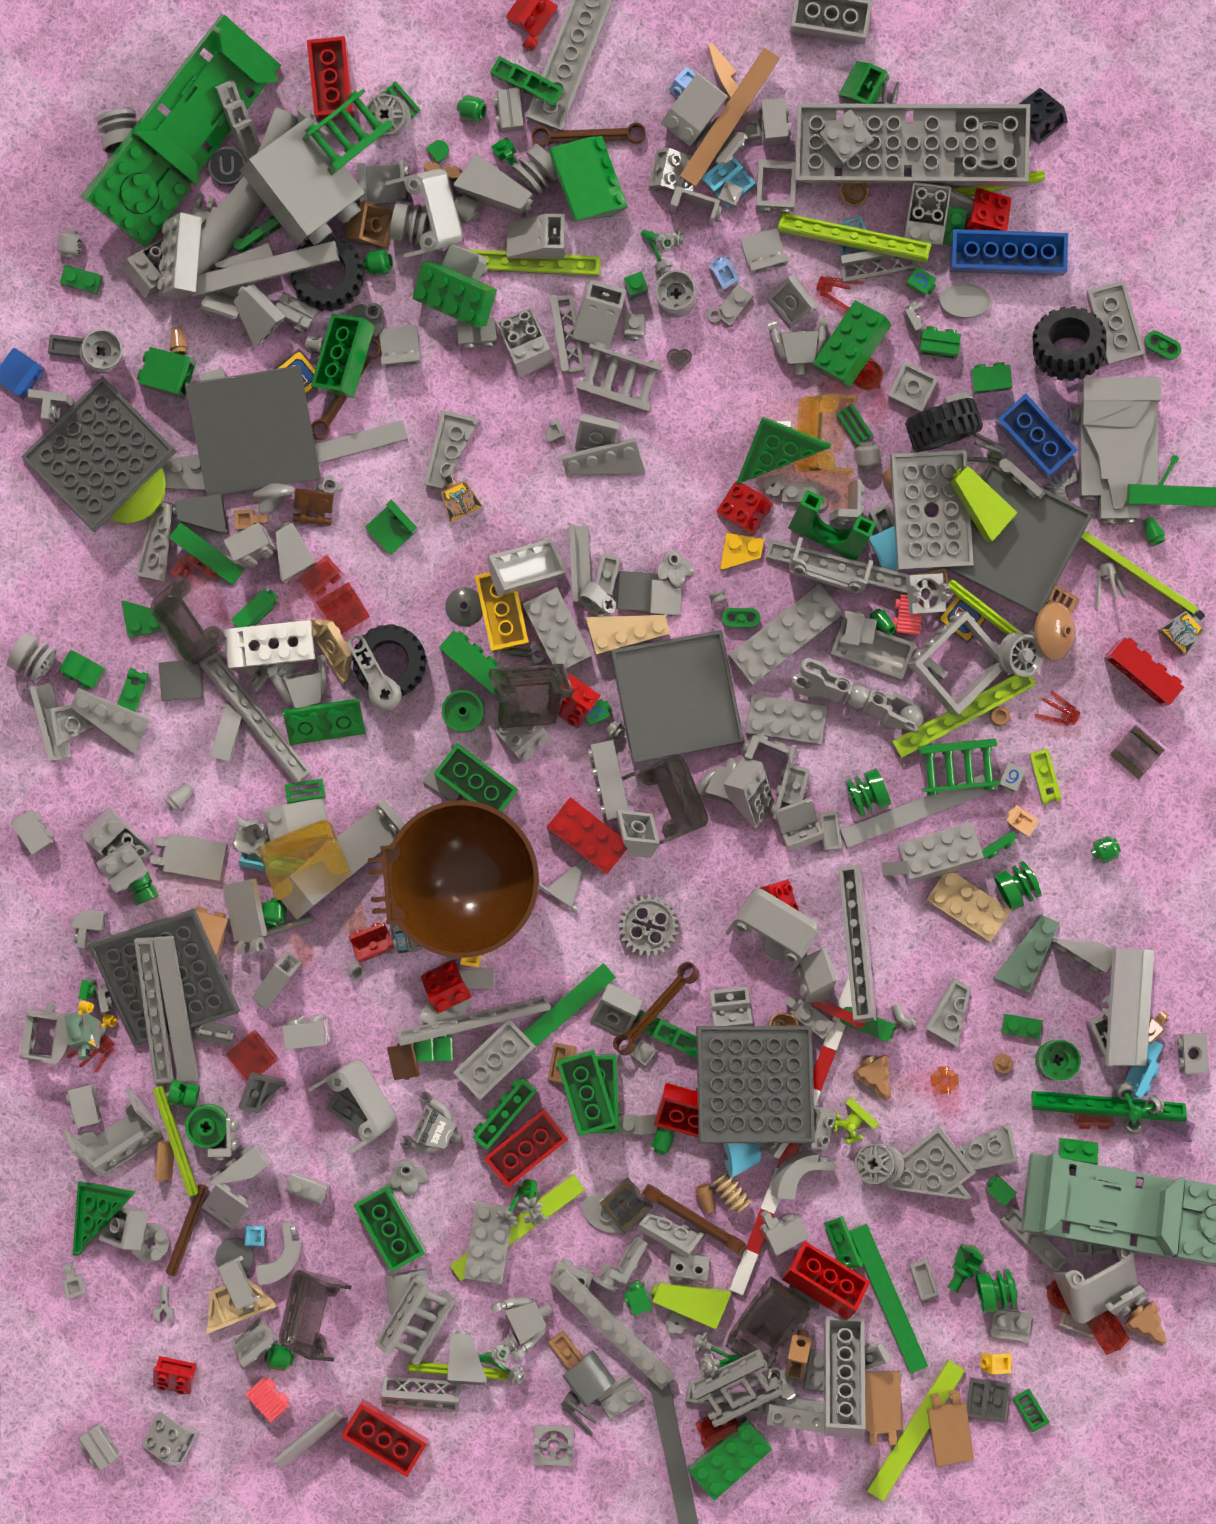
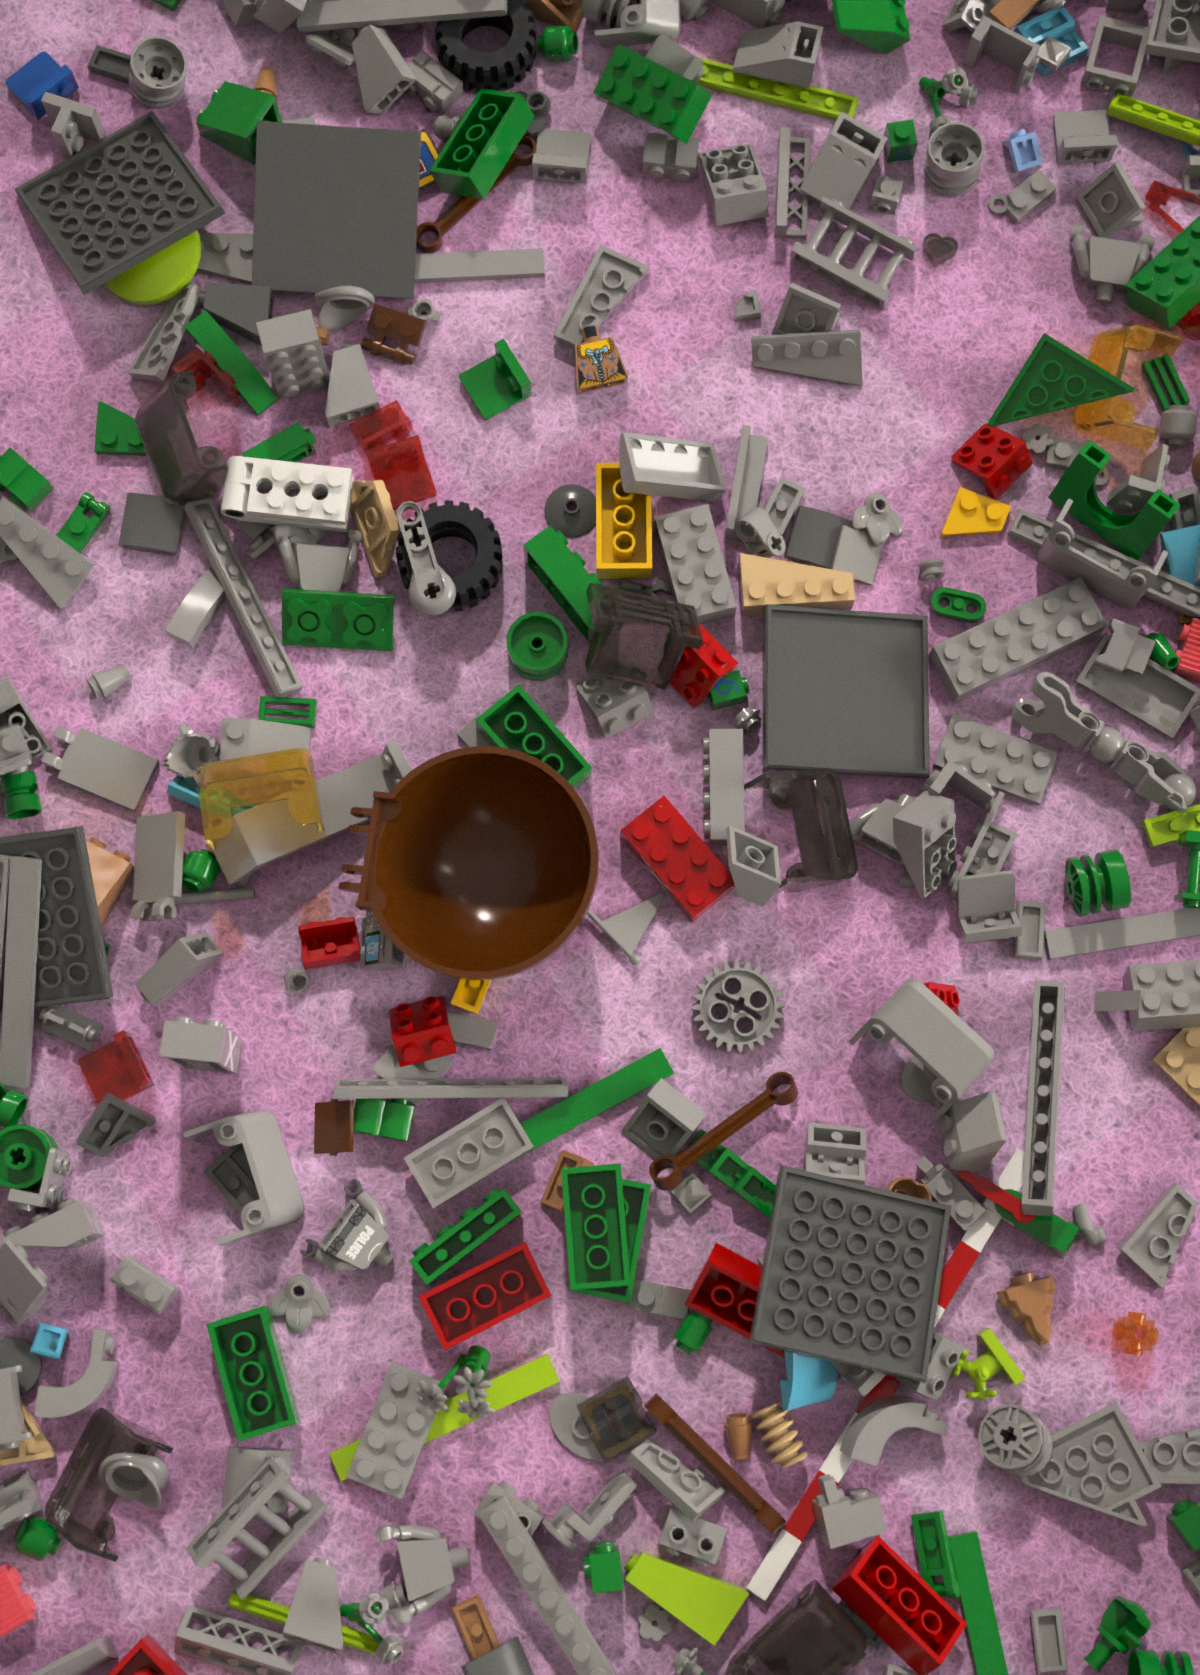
camera: 15 degrees right, 10 degrees down
(331, 1308) = (135, 1477): none -> light grey piece

